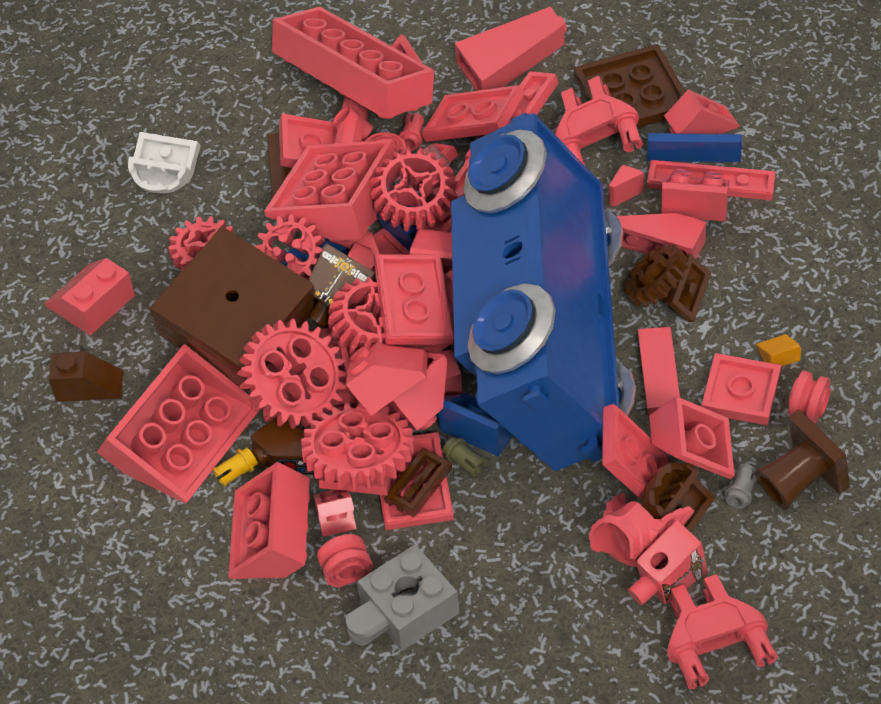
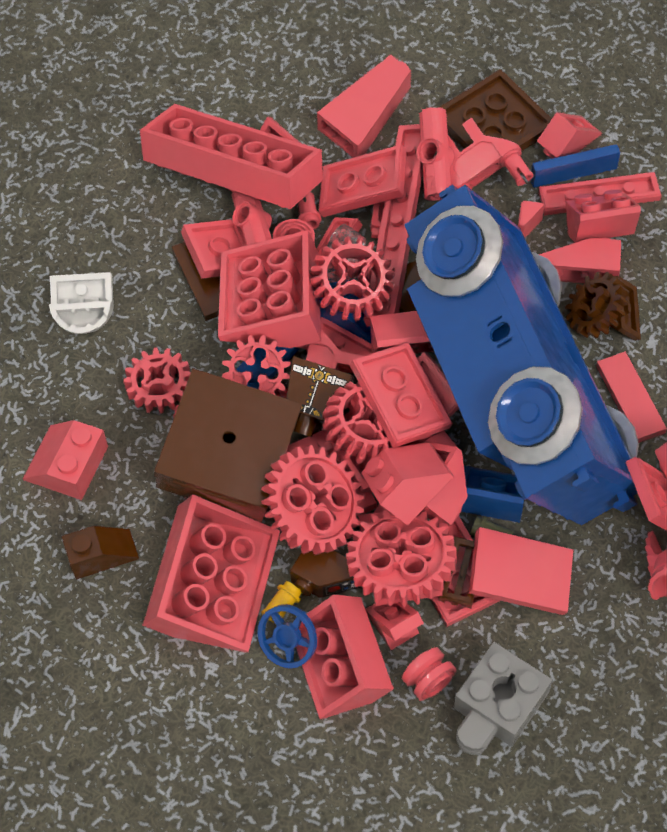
camera: 20 degrees left, 10 degrees up
(225, 493) = (287, 636): none -> blue wheel
(475, 494) = (521, 571): none -> coral tile
(550, 95) = (434, 138): none -> coral piece

